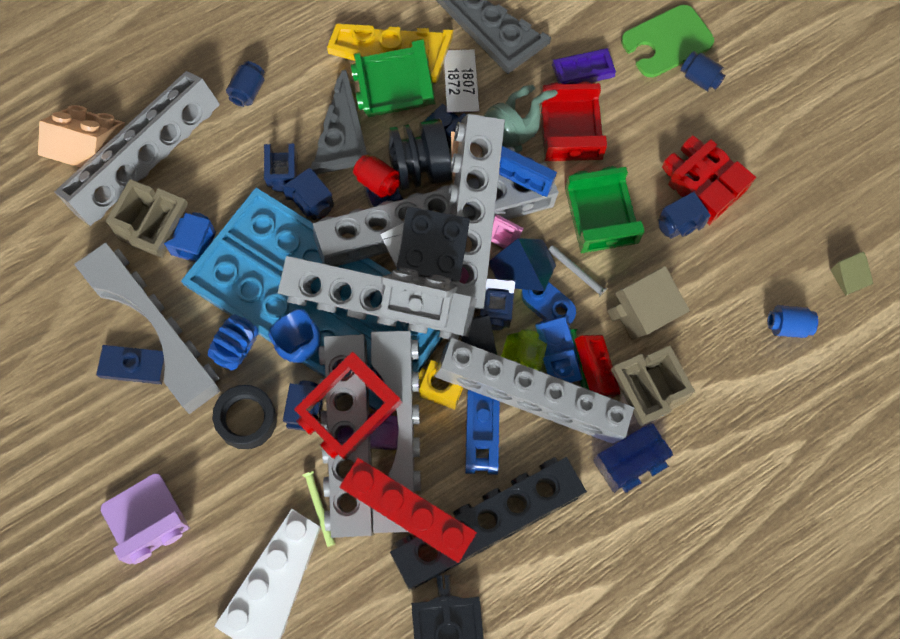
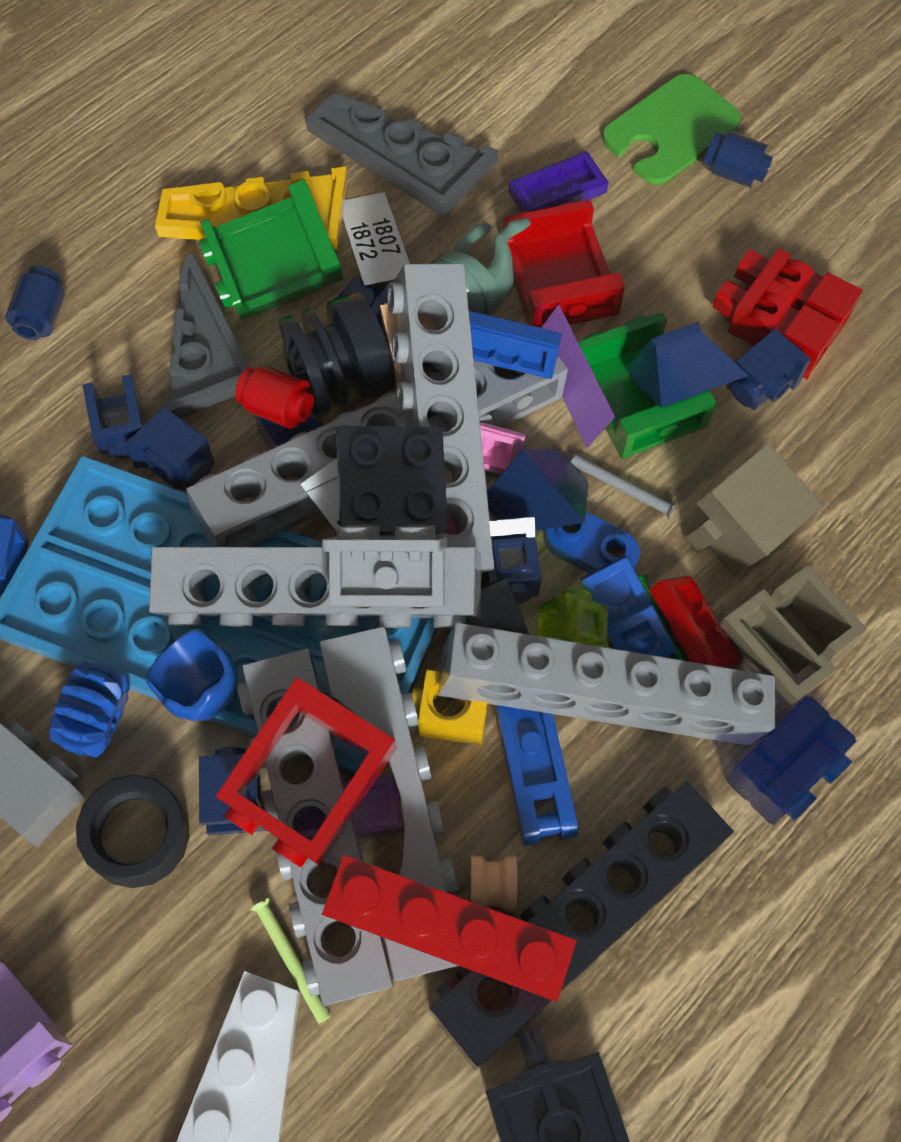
camera: 10 degrees left, 5 degrees down
(442, 491) = (494, 883): none -> light nougat wheel
(564, 204) = (581, 388): none -> medium lavender sticker
(628, 206) = (682, 366): none -> dark blue slope

